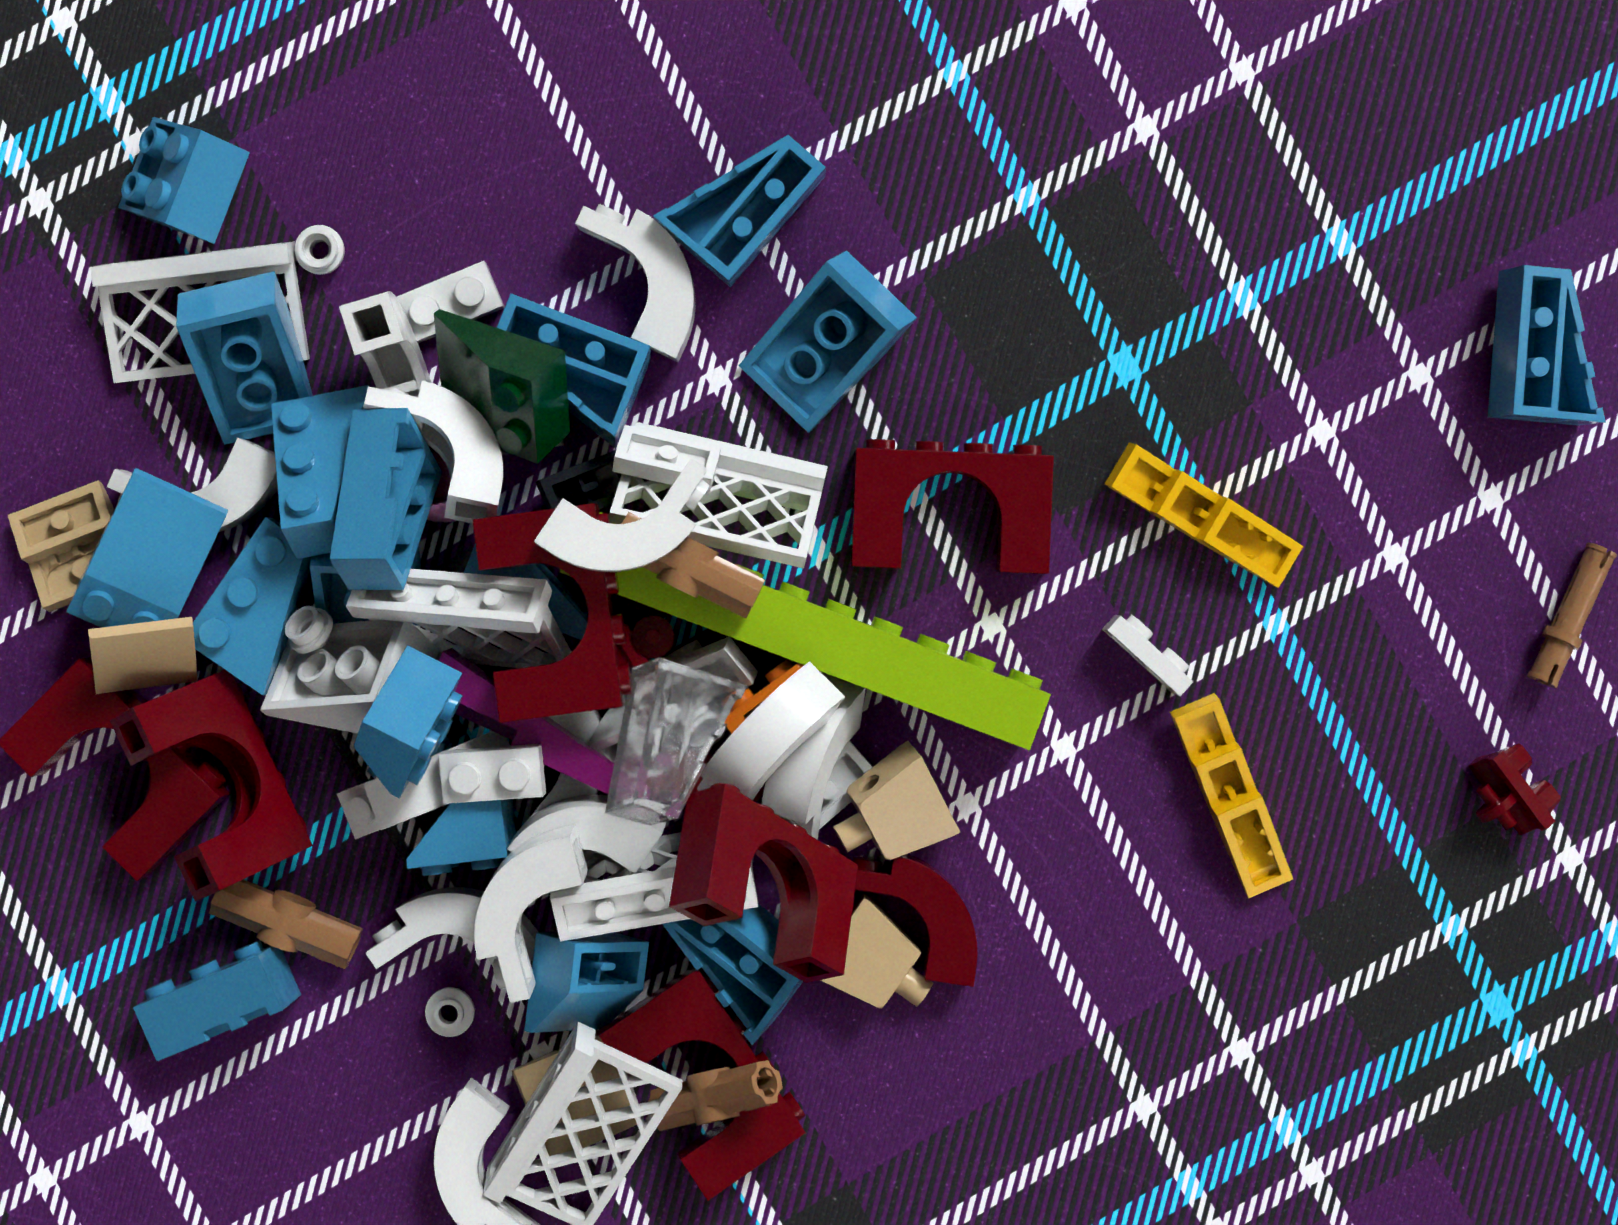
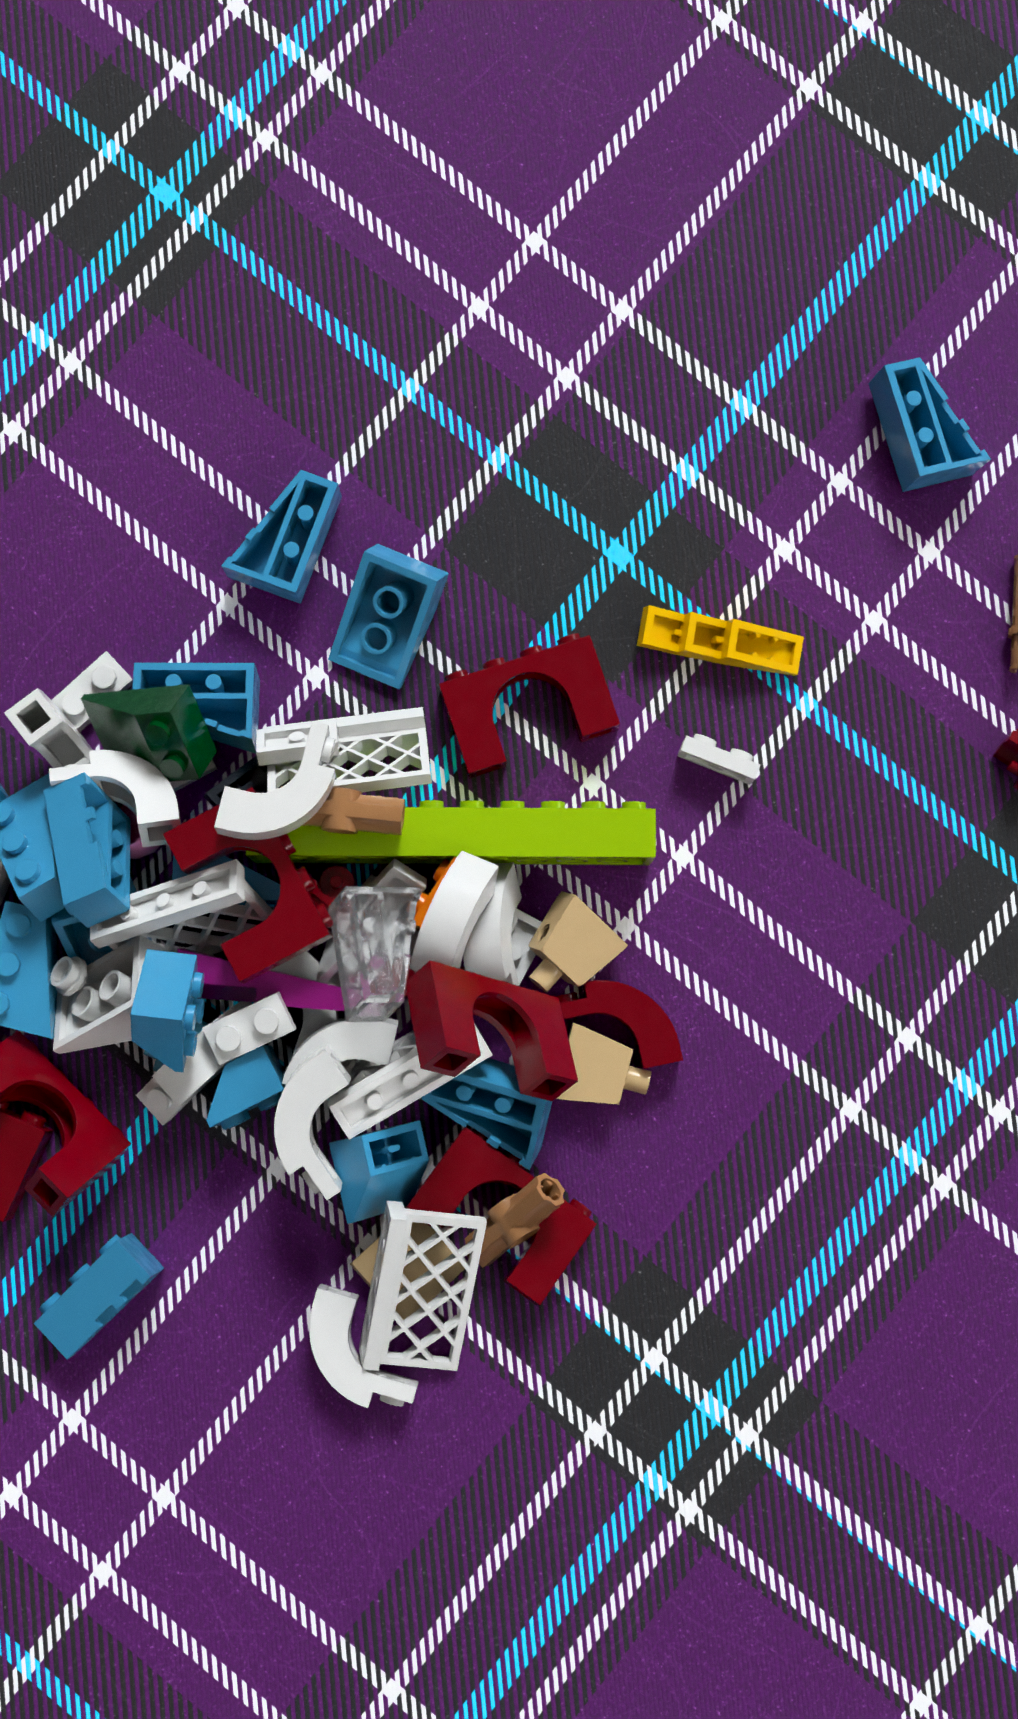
camera: 25 degrees left, 5 degrees down
(287, 922) = (132, 1212): medium nougat piece -> none
(434, 913) = (242, 1164): white arch -> none
(456, 998) = (297, 1231): white plate -> none
(671, 292) = (259, 630): white arch -> none
(1231, 795) = (824, 843): yellow slope -> none

